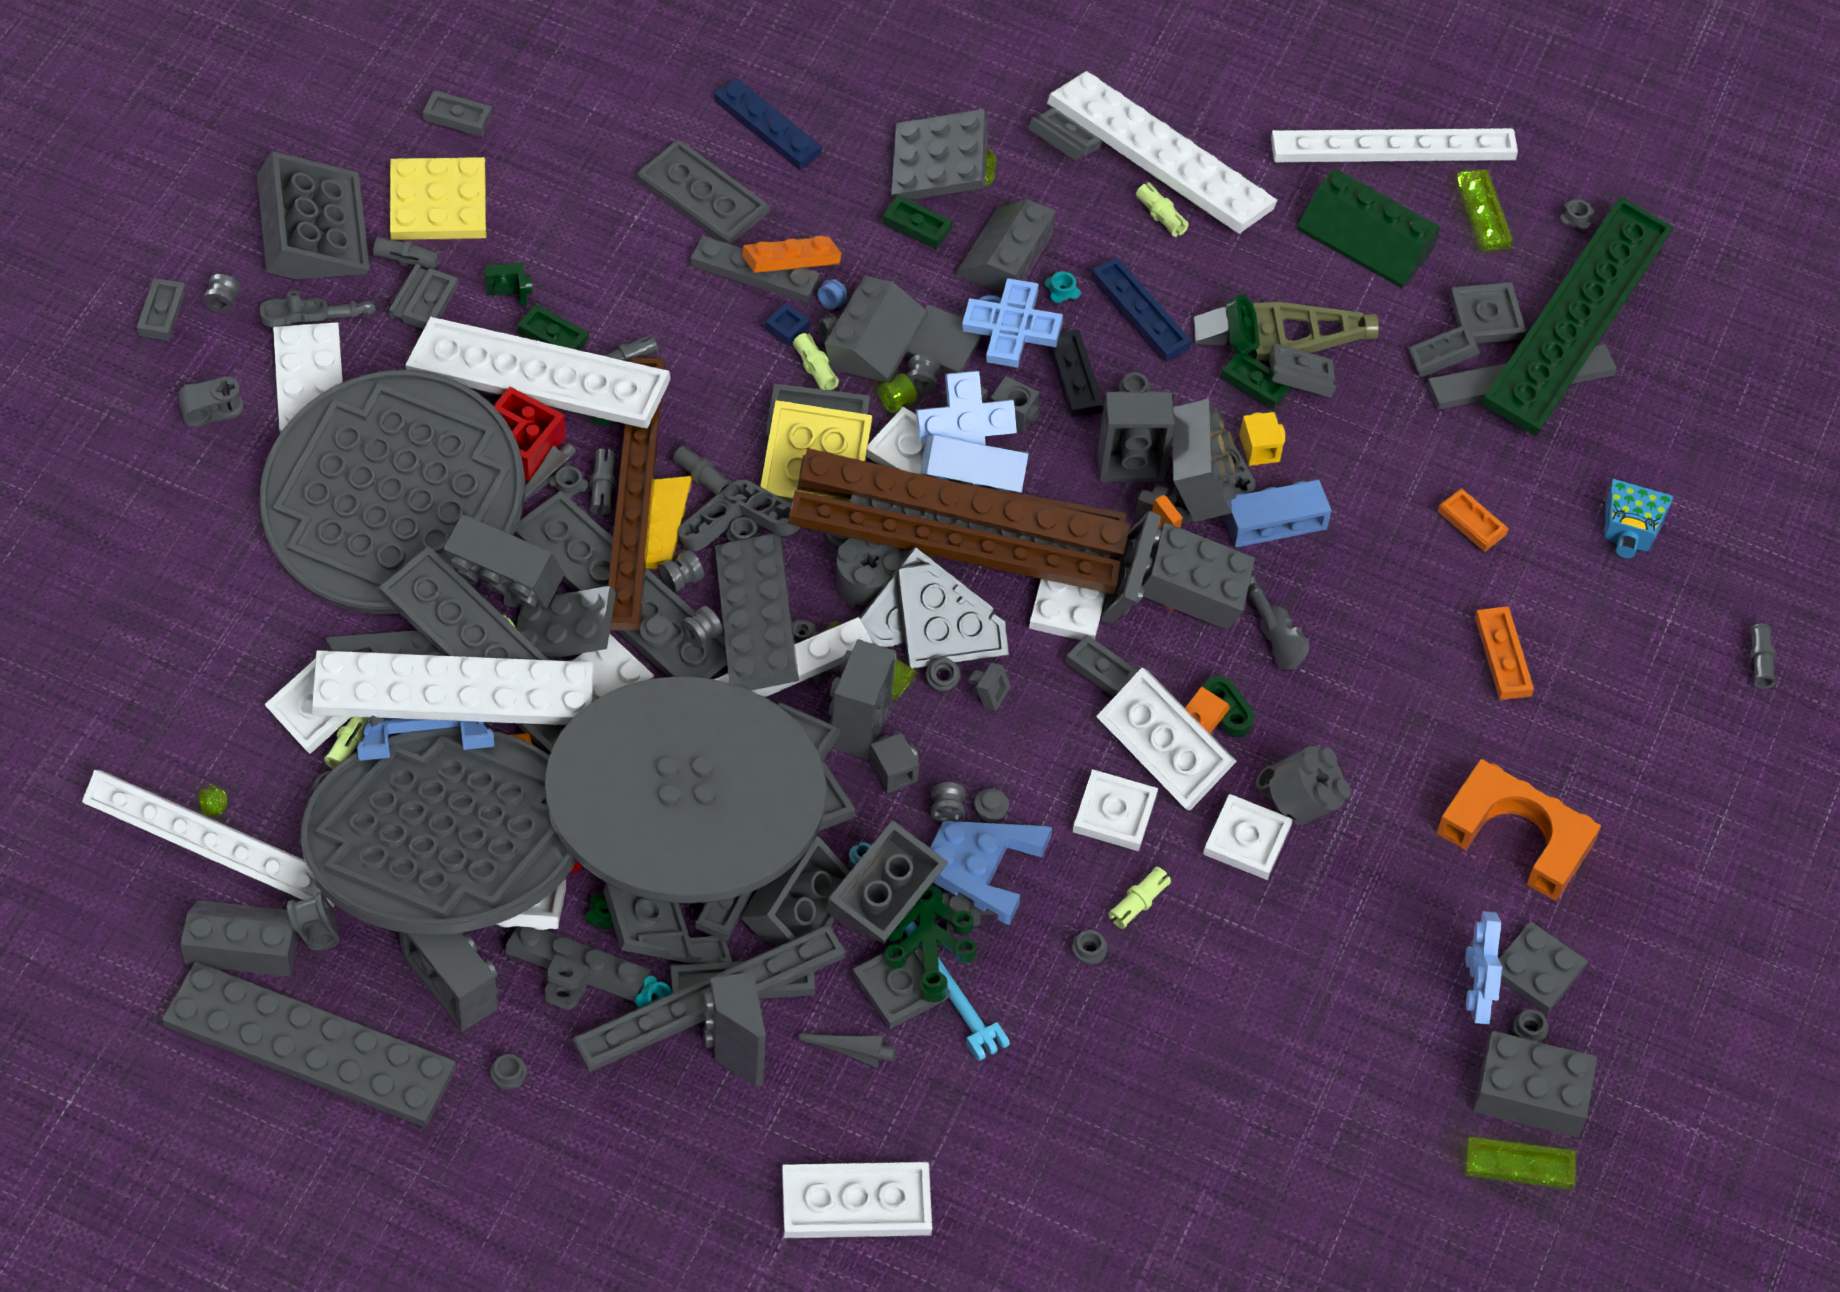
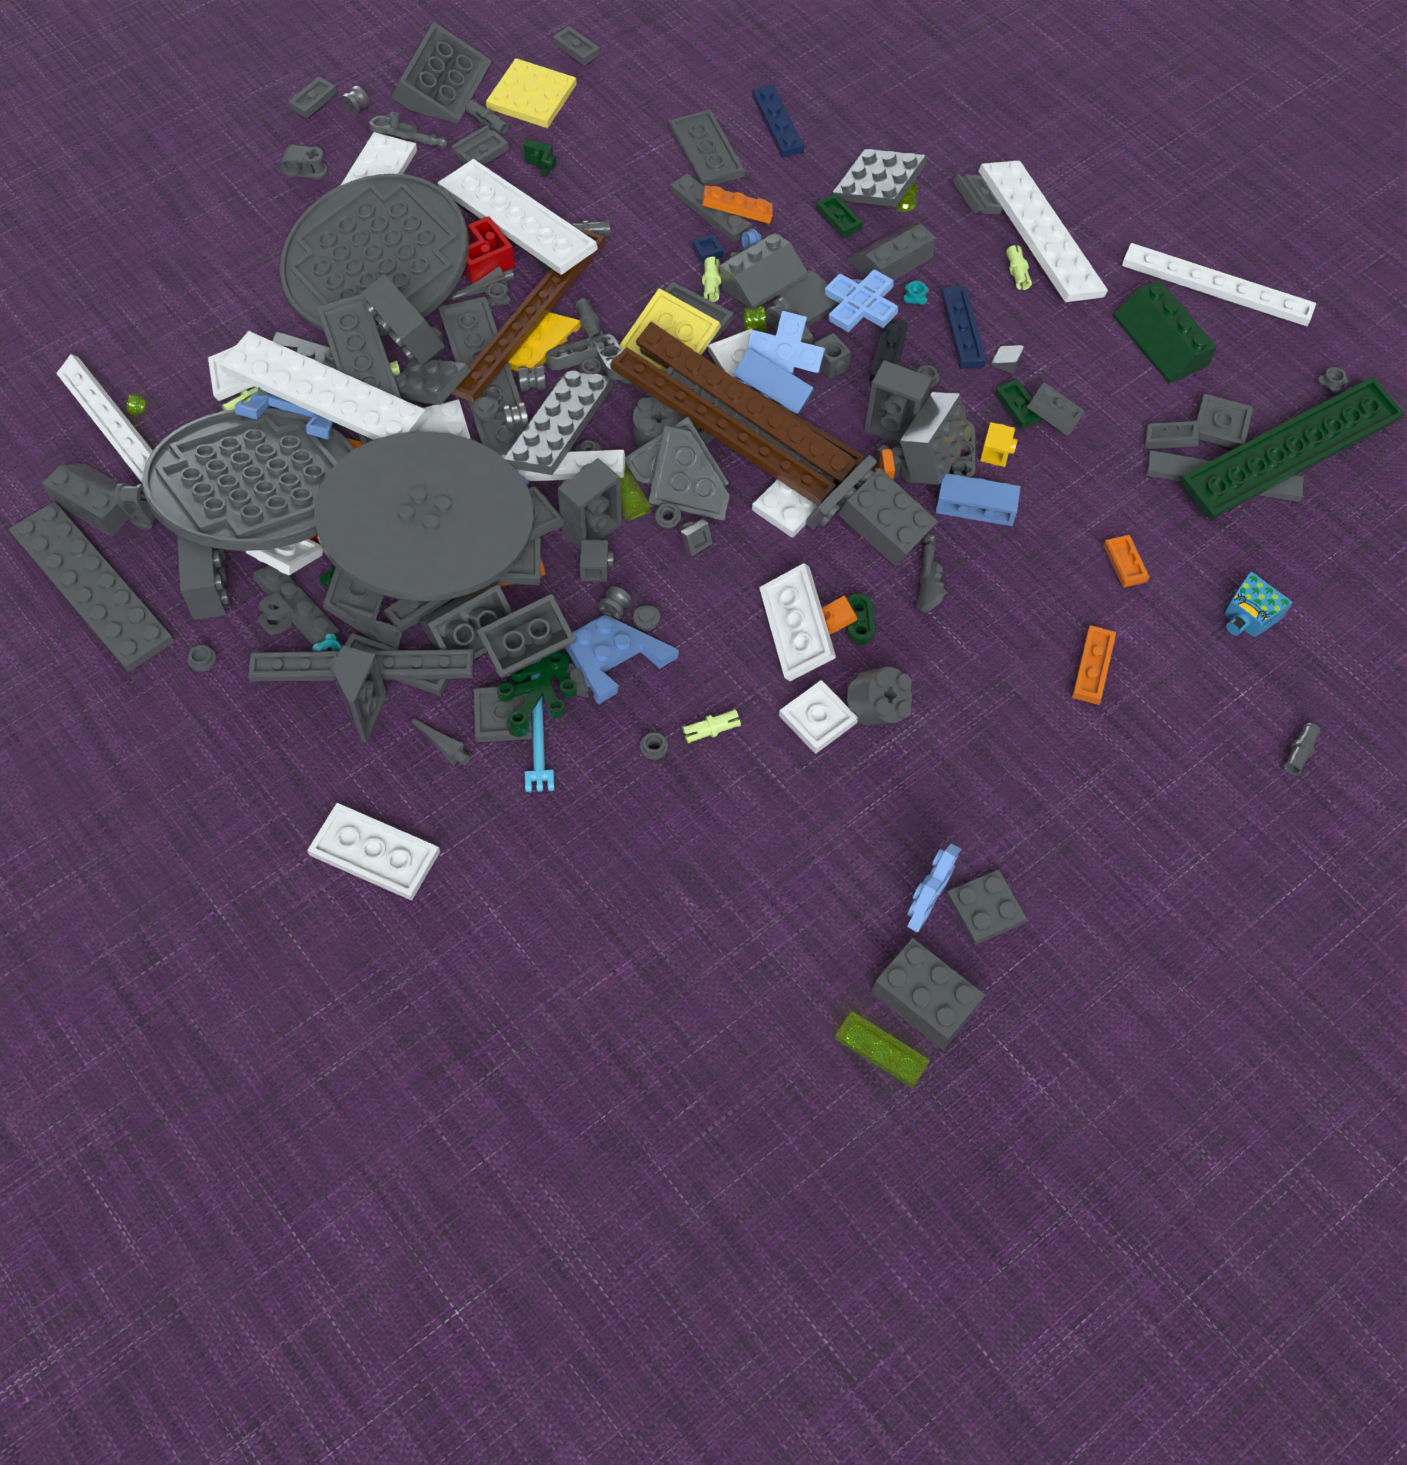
camera: 30 degrees right, 5 degrees up
(551, 329) = (549, 196): dark green plate -> none
(602, 482) = (517, 299): dark grey pin -> none
(1100, 665) = (782, 551): dark grey plate -> none
(1115, 810) = (732, 657): white plate -> none
(1242, 324) = (1028, 361): dark green plate -> none
(1271, 328) = (1052, 365): olive plate -> none
(1484, 210) = (1261, 351): clear neon green plate -> none
(1494, 793) = (1024, 761): orange arch -> none
(1534, 1019) = (952, 941): dark grey plate -> none

